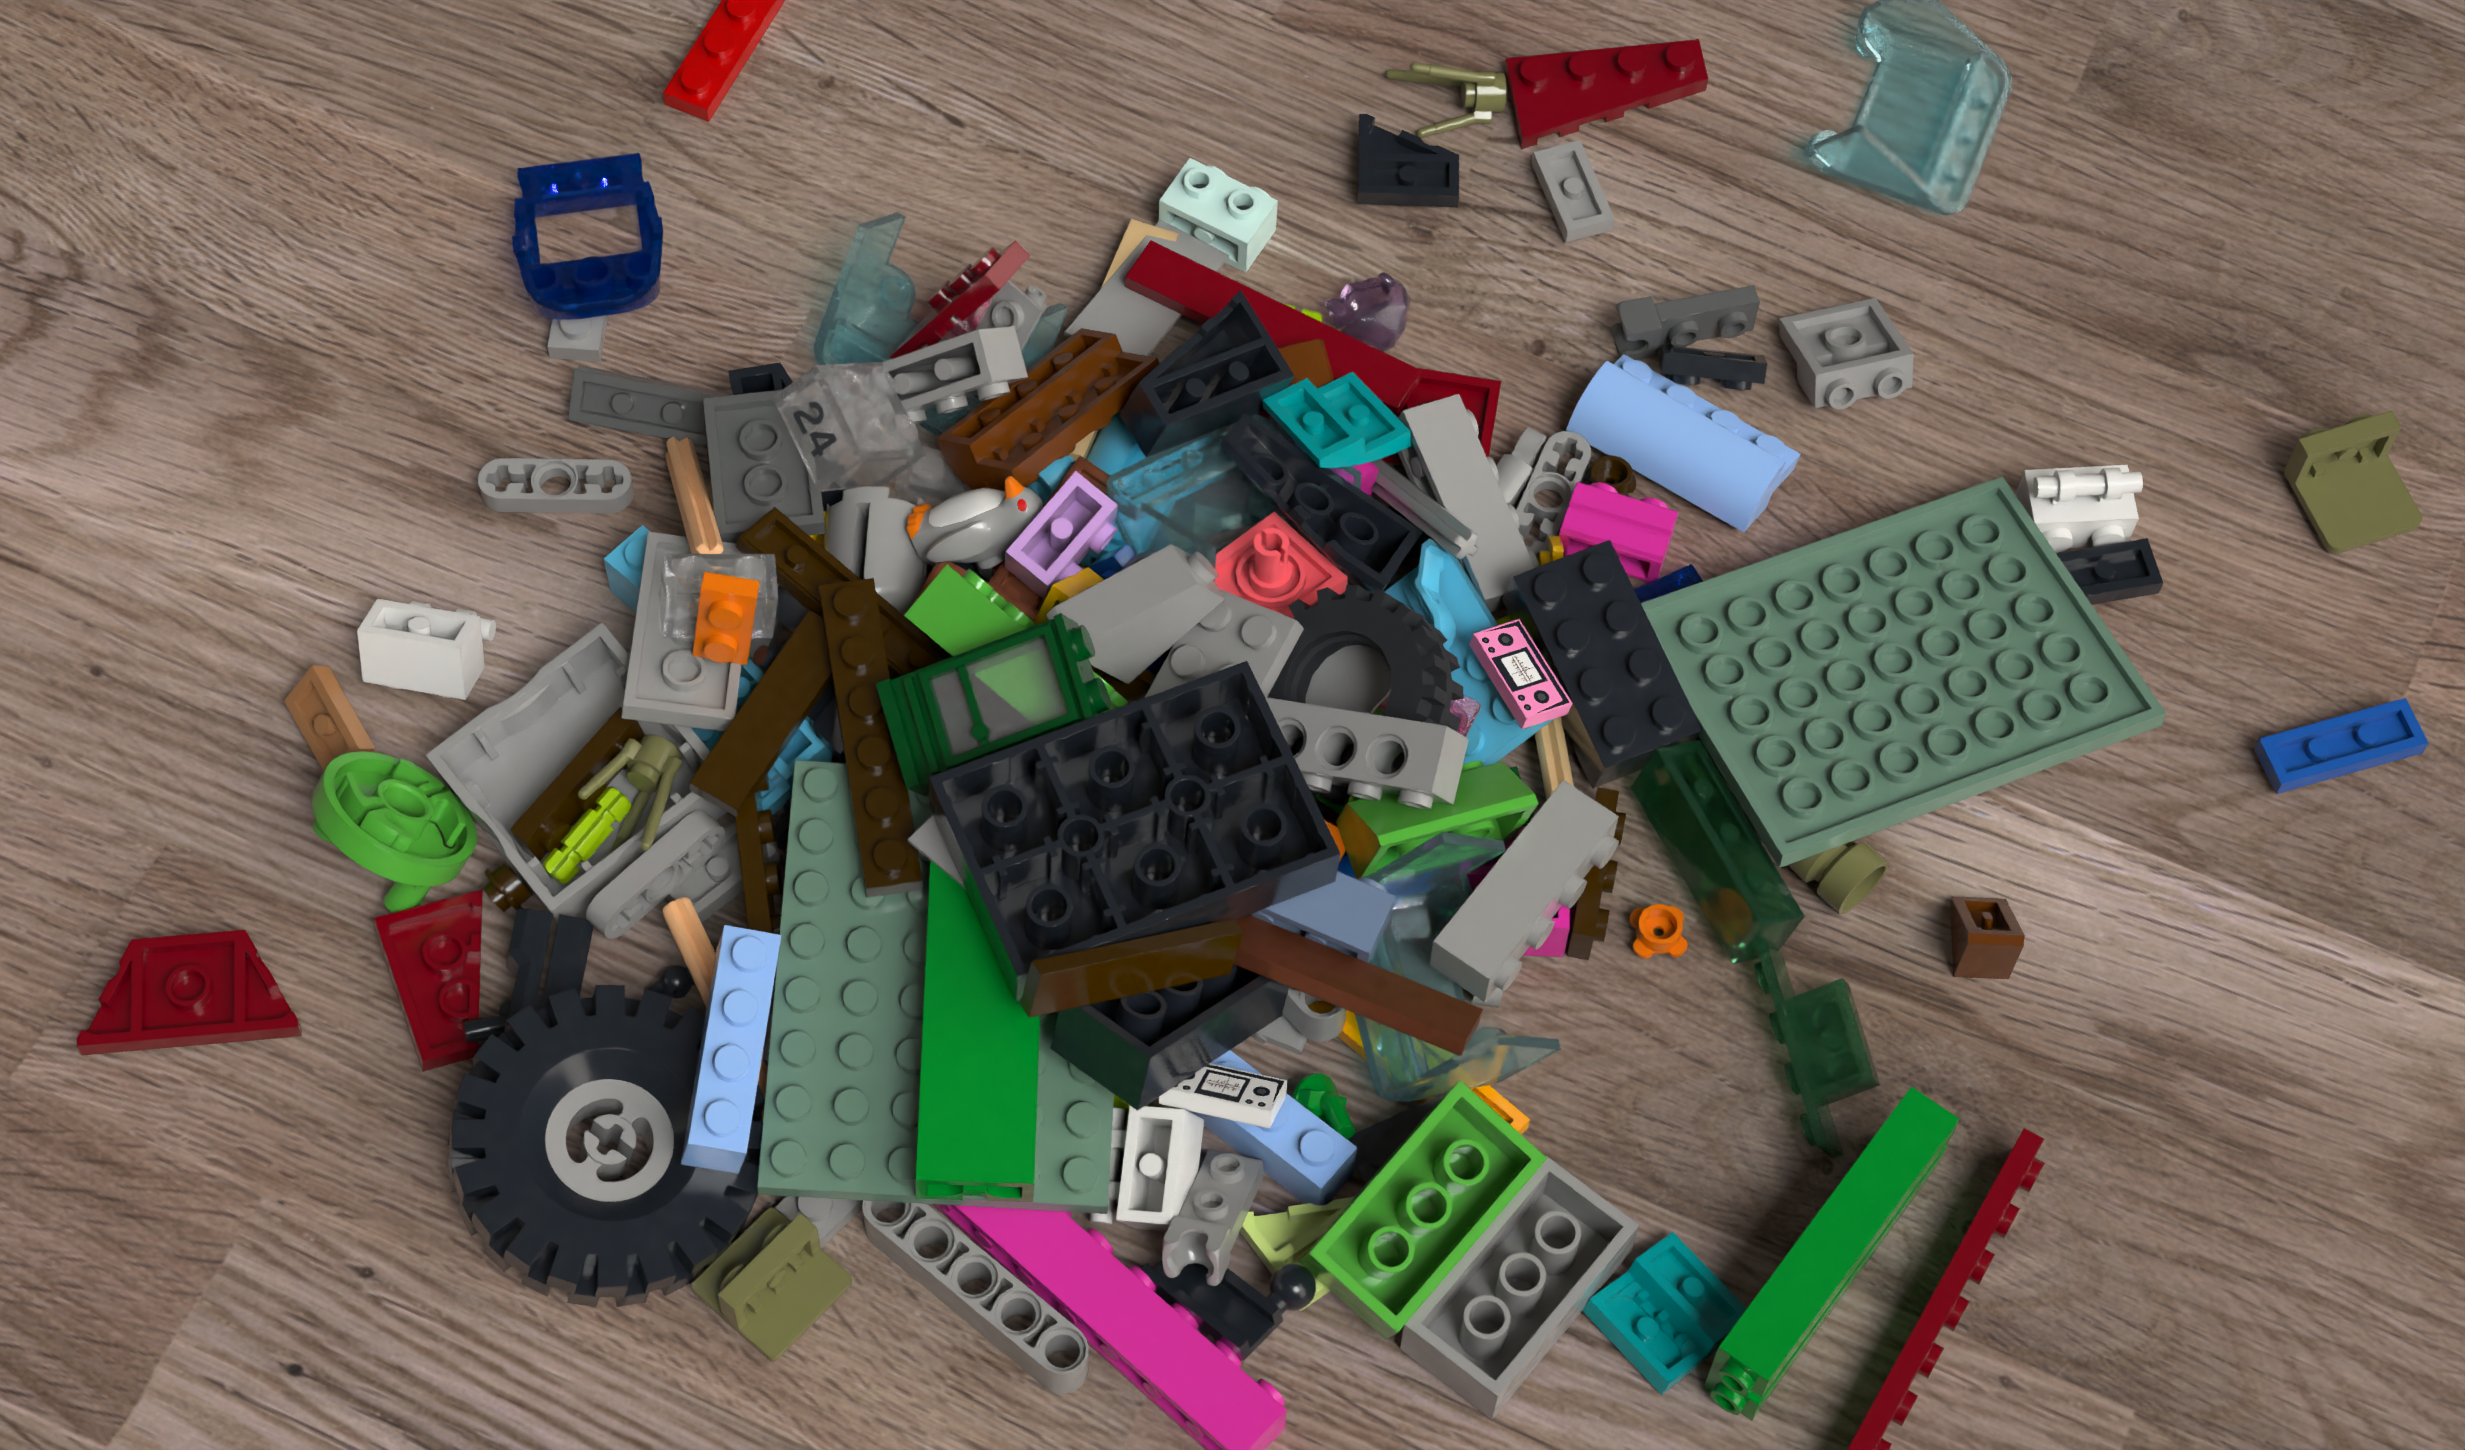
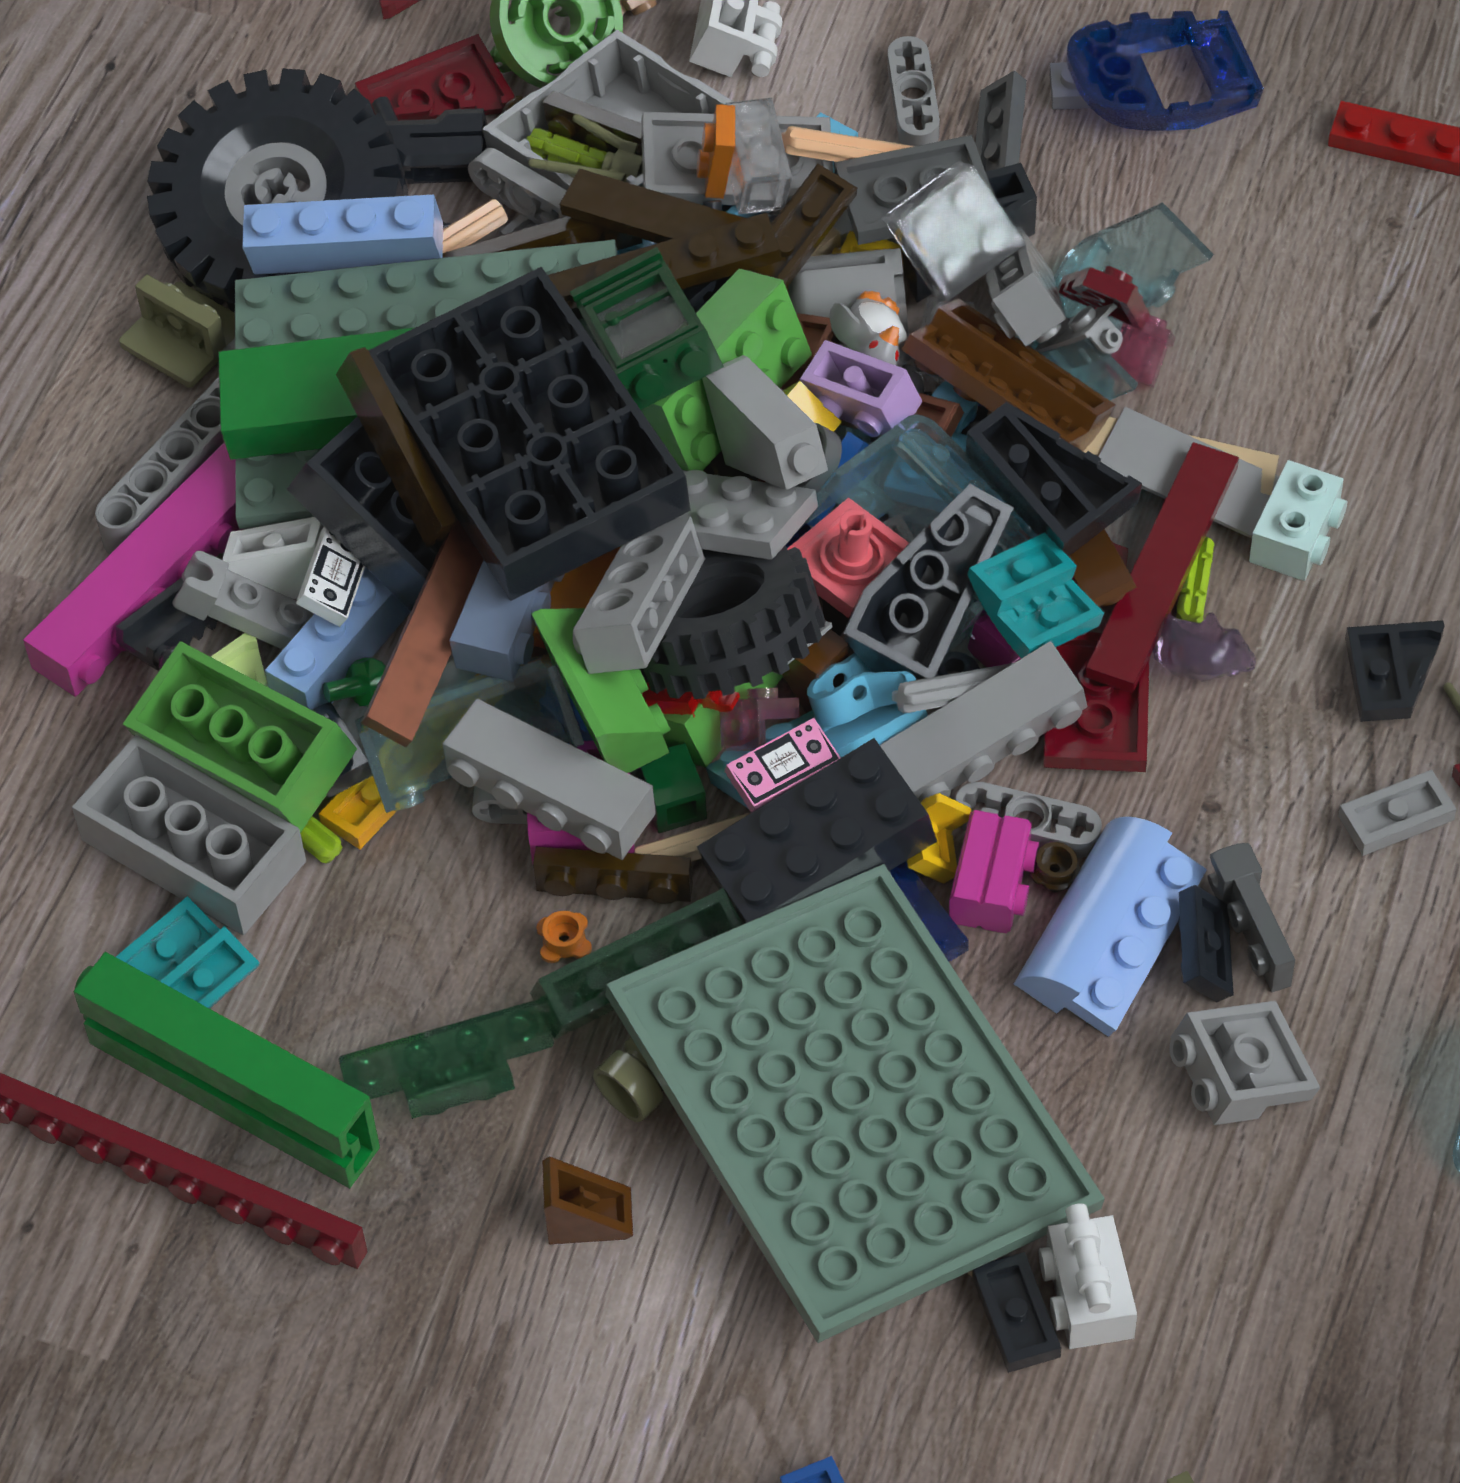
camera: 90 degrees right, 5 degrees down
(1517, 467) = (1045, 780): light grey bar -> none

